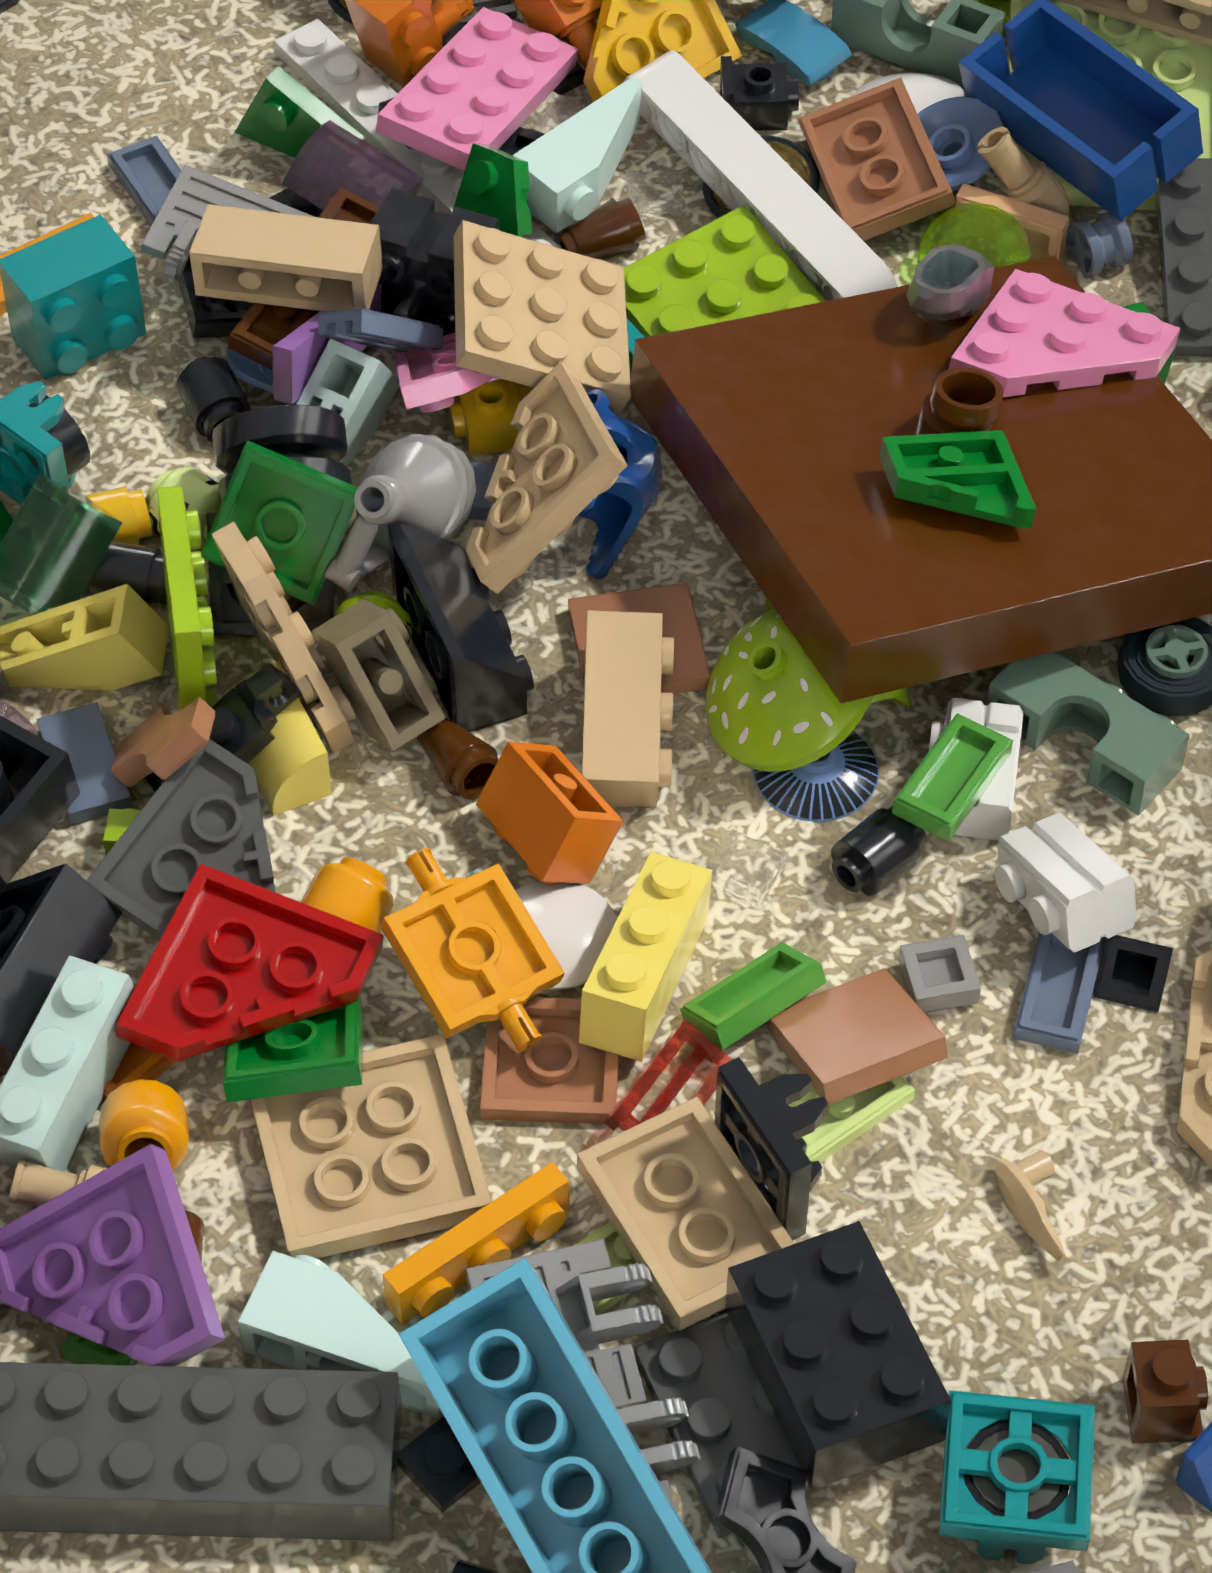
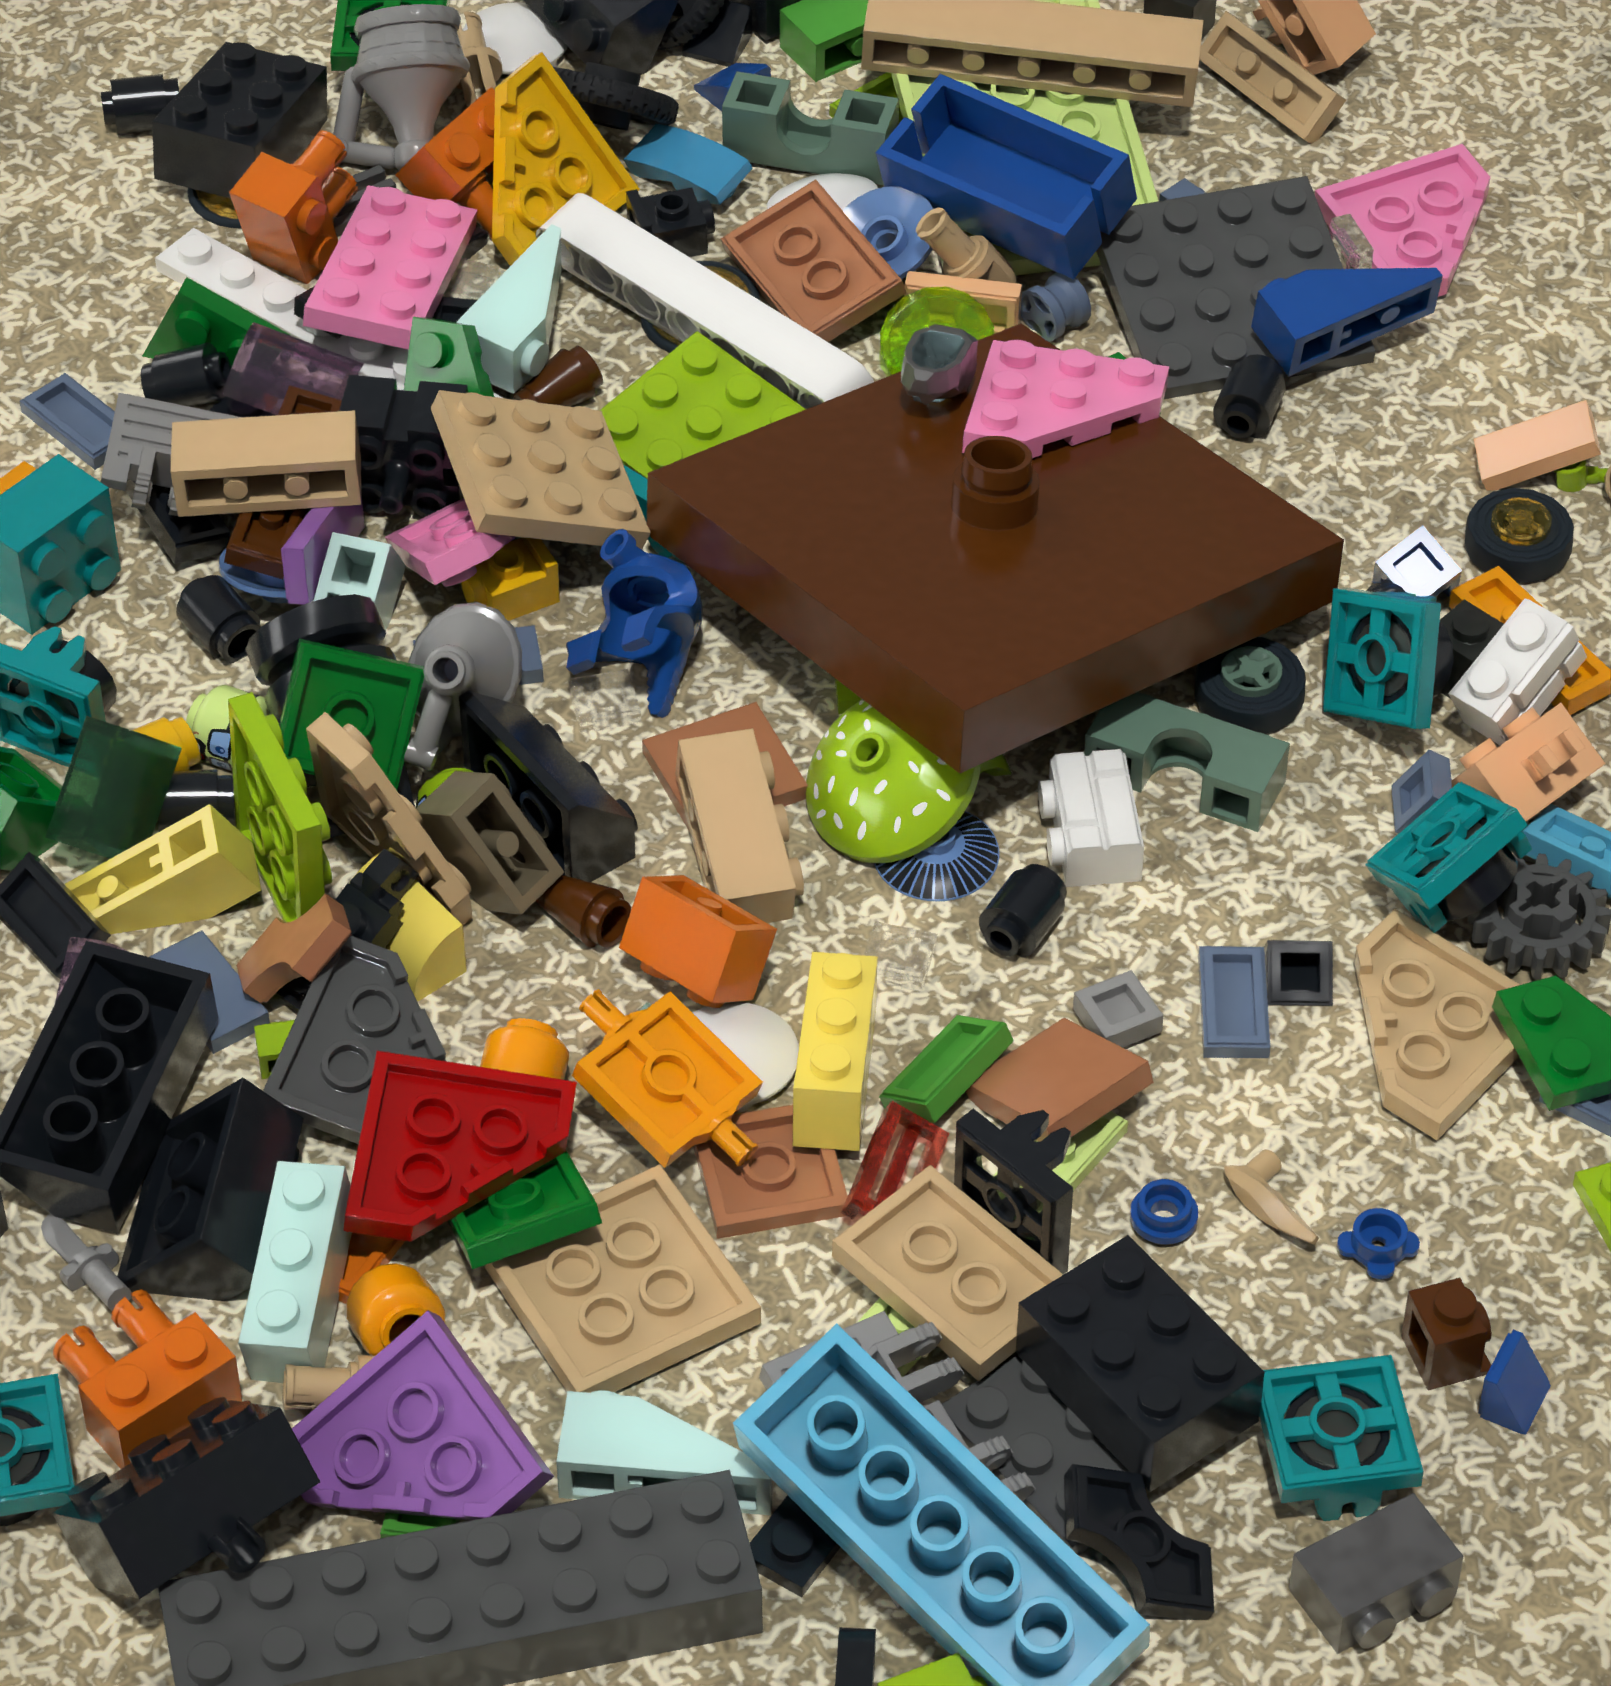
camera: 15 degrees left, 5 degrees down
(257, 159) = (187, 376): none -> black brick
(380, 330) = (380, 515): sand blue tile -> none
(432, 1274) = (724, 1383): light orange plate -> none
(546, 481) = (596, 625): tan plate -> none
(657, 195) = (601, 337): clear tile -> none
(925, 1176) = (1164, 1196): none -> blue plate
(952, 777) = (1079, 825): bright green tile -> none
(960, 474) = (1013, 535): green wing -> none
(1065, 882) = (1215, 901): white brick -> none
(1132, 1257) = (1382, 1226): none -> blue plate

